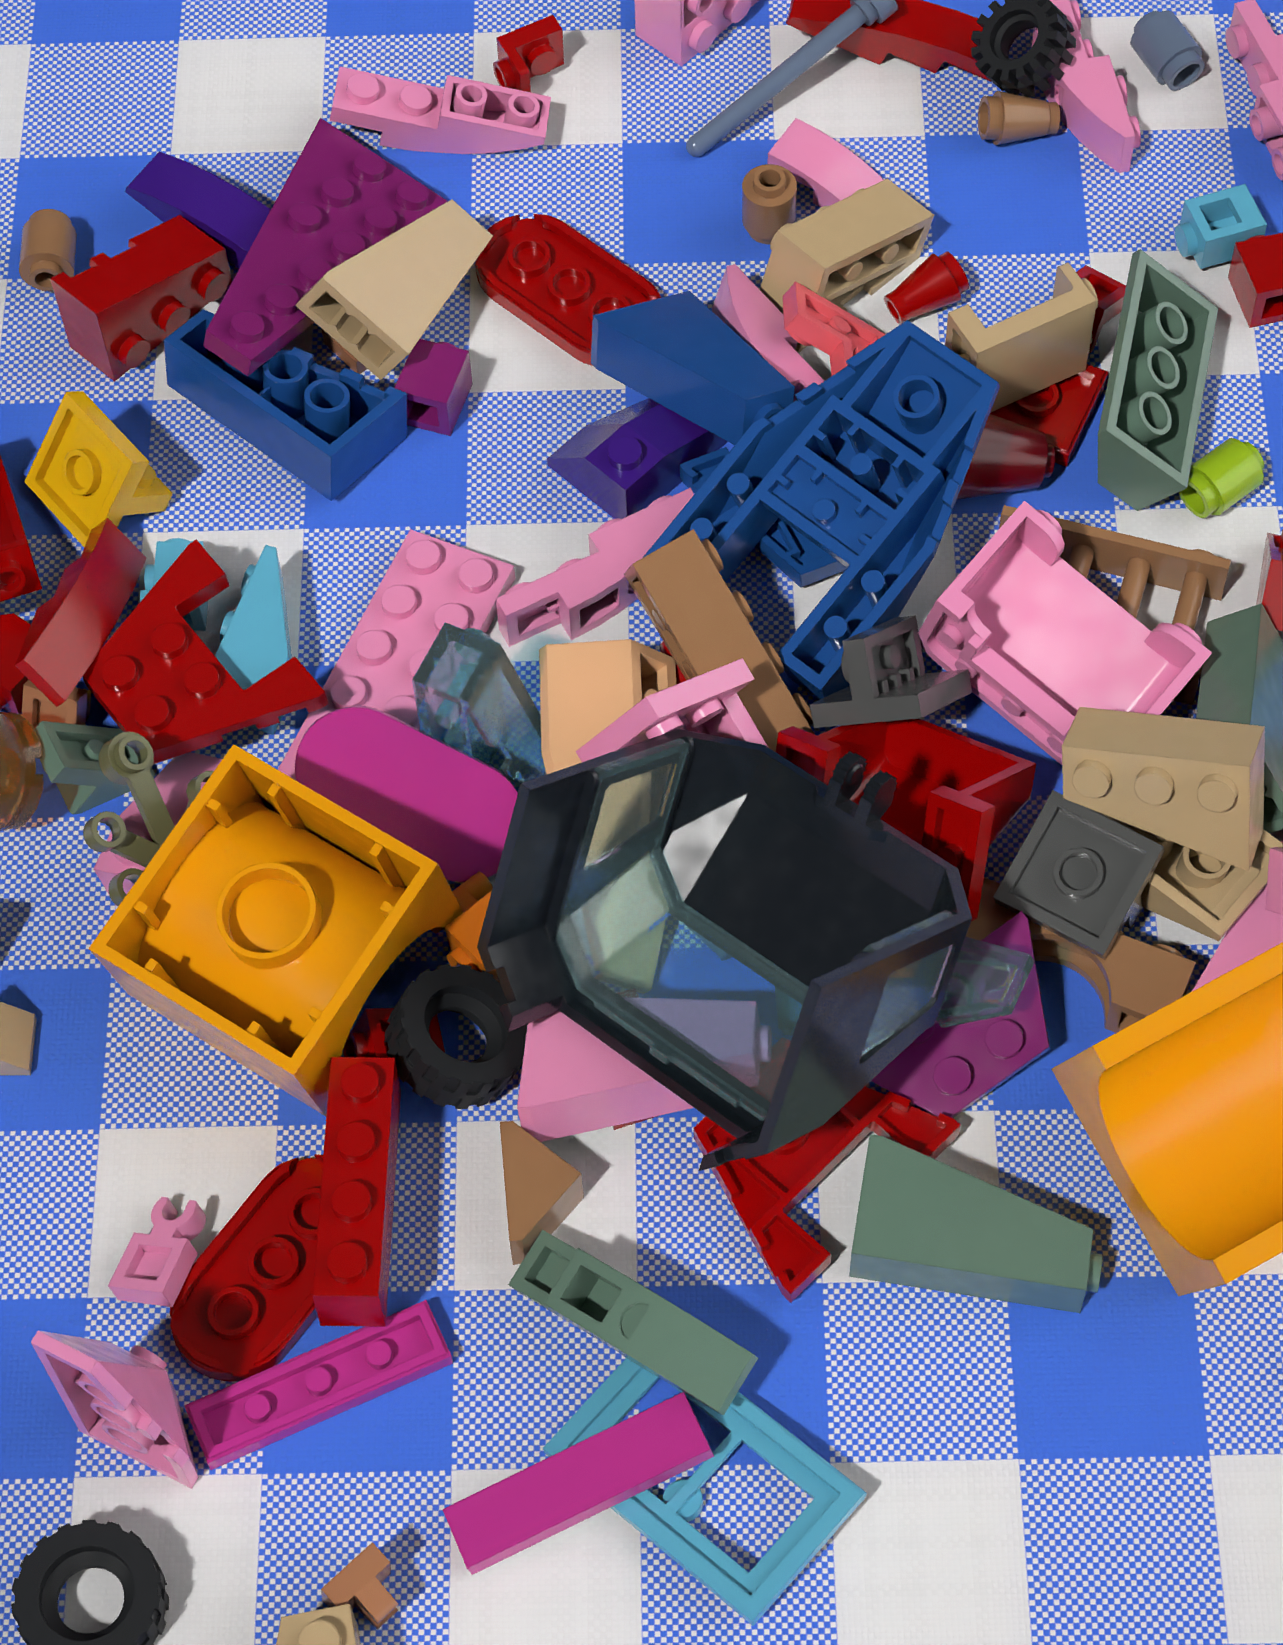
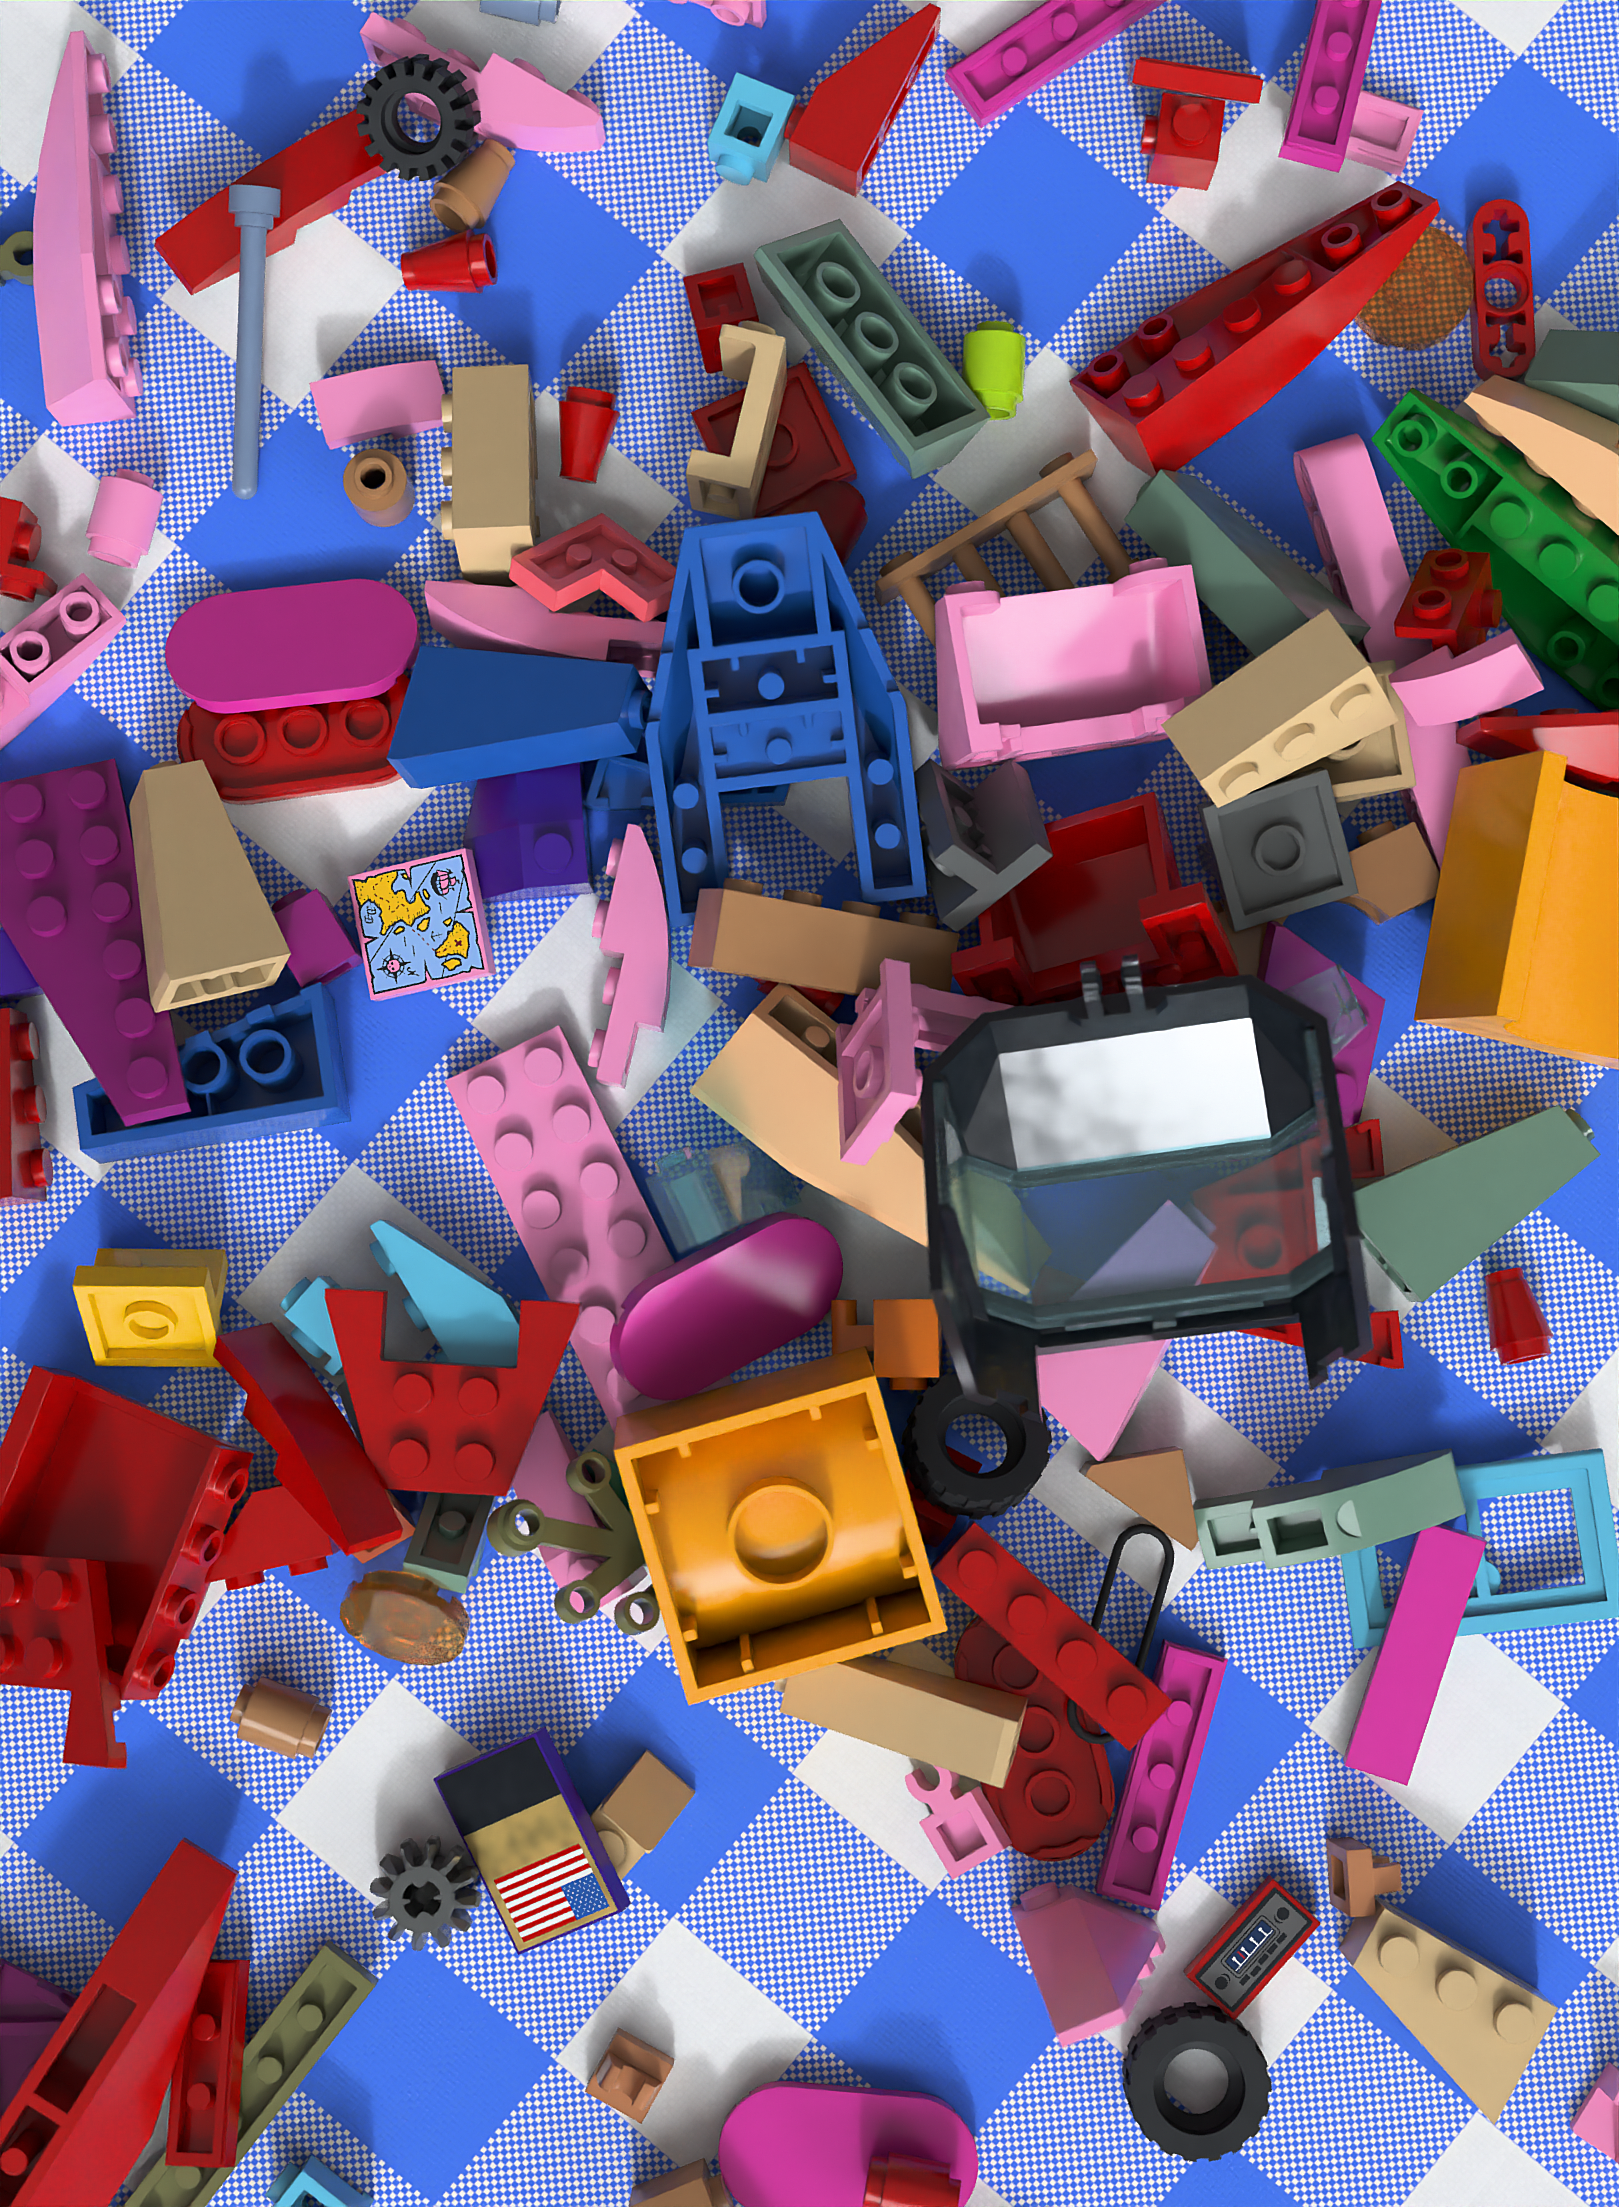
camera: 50 degrees left, 25 degrees up
(215, 1143) = (912, 1713): none -> tan slope
(236, 1562) = (1251, 1947): none -> tile
(435, 1281) = (1152, 1619): none -> black piece
(504, 439) = (421, 925): none -> tile
(608, 95) = (123, 518): none -> bright pink brick
(617, 234) = (292, 645): none -> dark pink tile
(904, 1353) = (1515, 1319): none -> red cone
(957, 143) = (451, 264): none -> red cone

